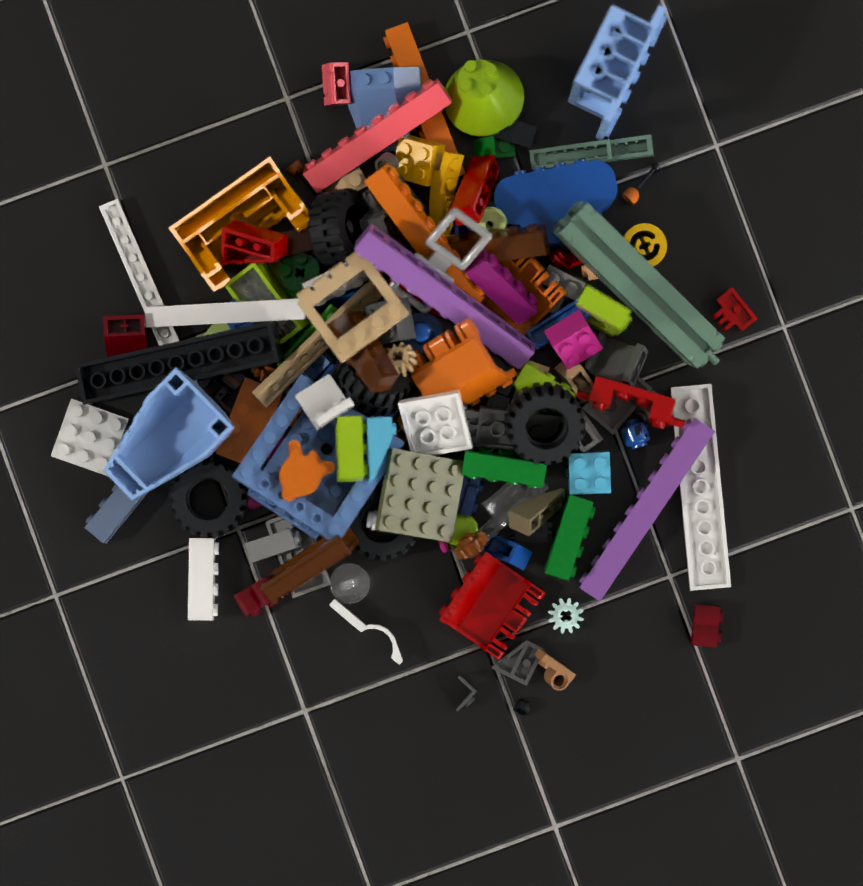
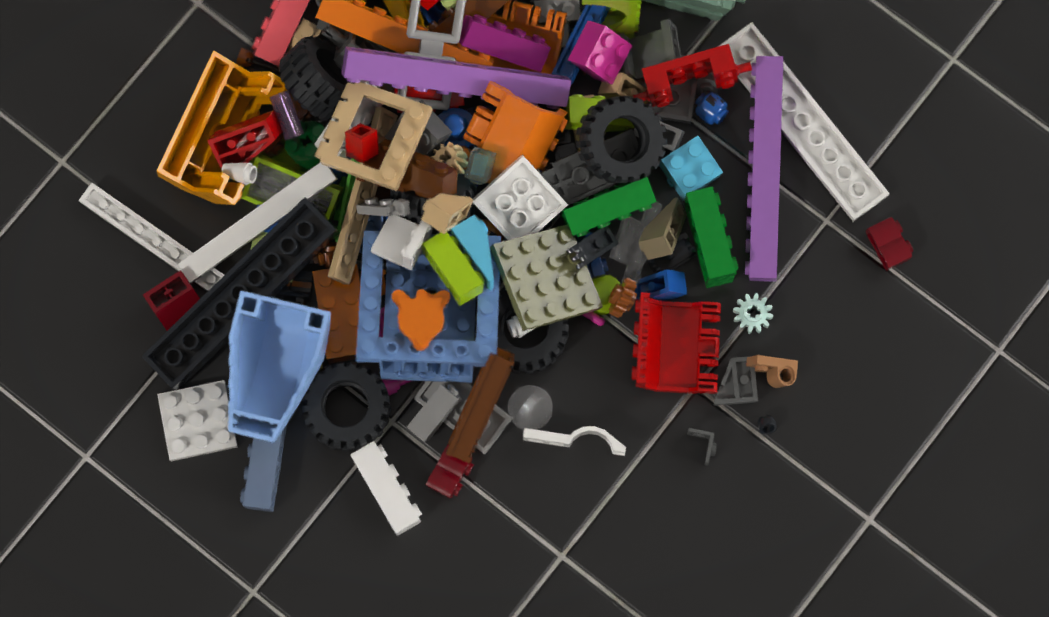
camera: 30 degrees left, 10 degrees down
(234, 269) = (241, 172): none -> white cone
(295, 245) = (286, 115): none -> piece
(326, 366) = (384, 207): none -> light grey hinge
(338, 307) = (361, 143): none -> red brick
(369, 403) = (446, 211): none -> tan slope
(421, 378) = (480, 166): none -> clear light blue brick
(471, 492) = (592, 246): none -> black hinge

